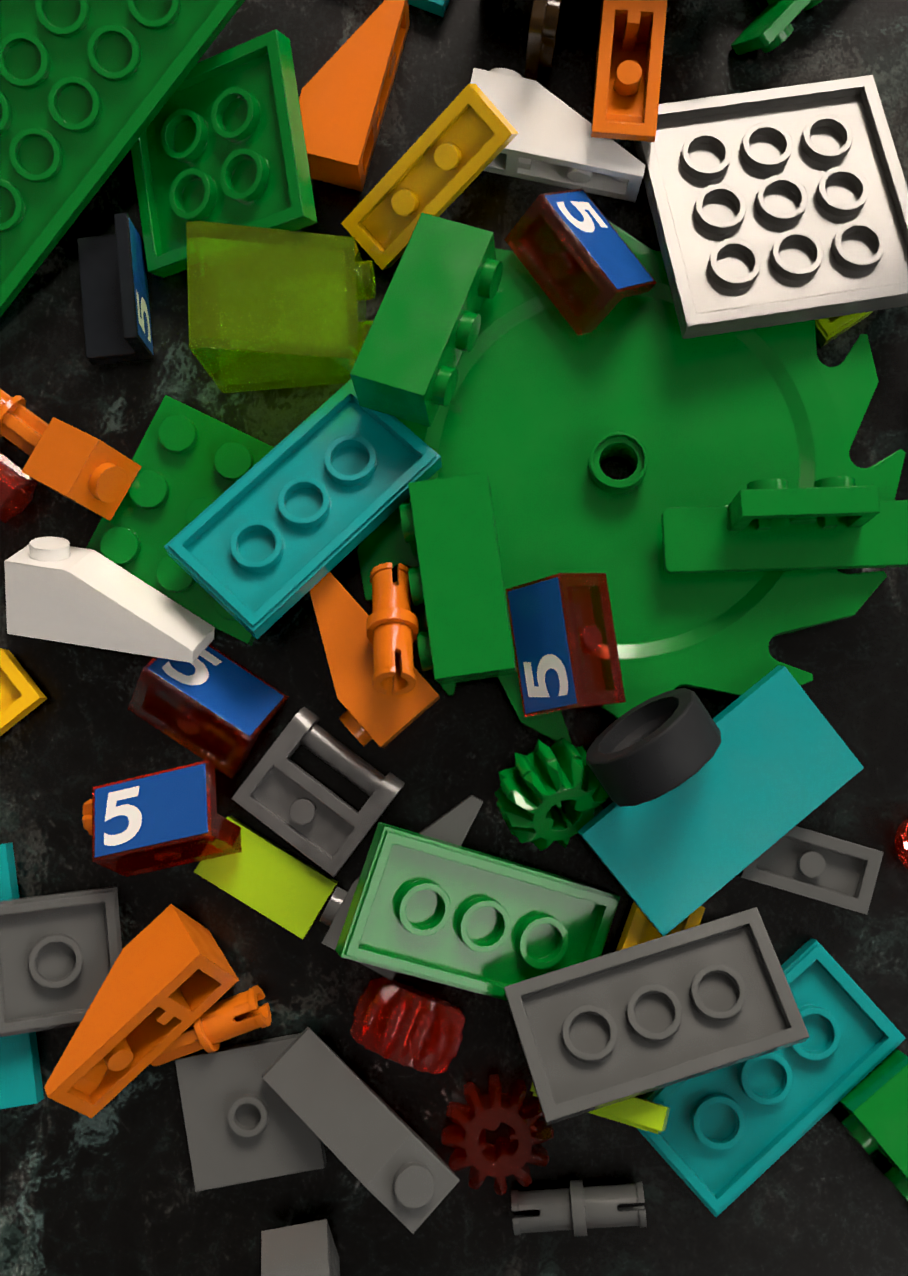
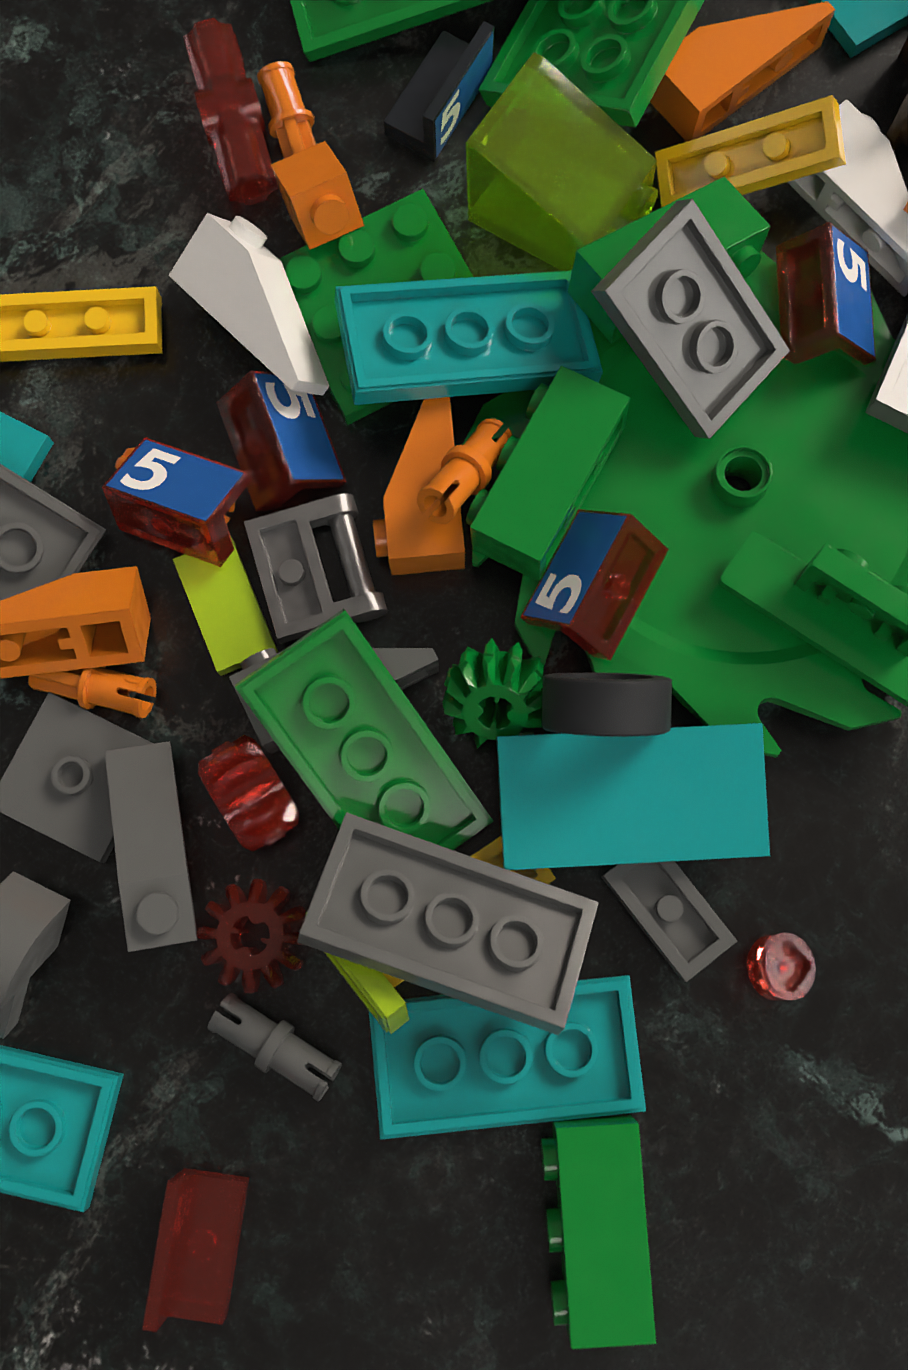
camera: 35 degrees right, 5 degrees down
(489, 366) = (691, 319): none -> plate

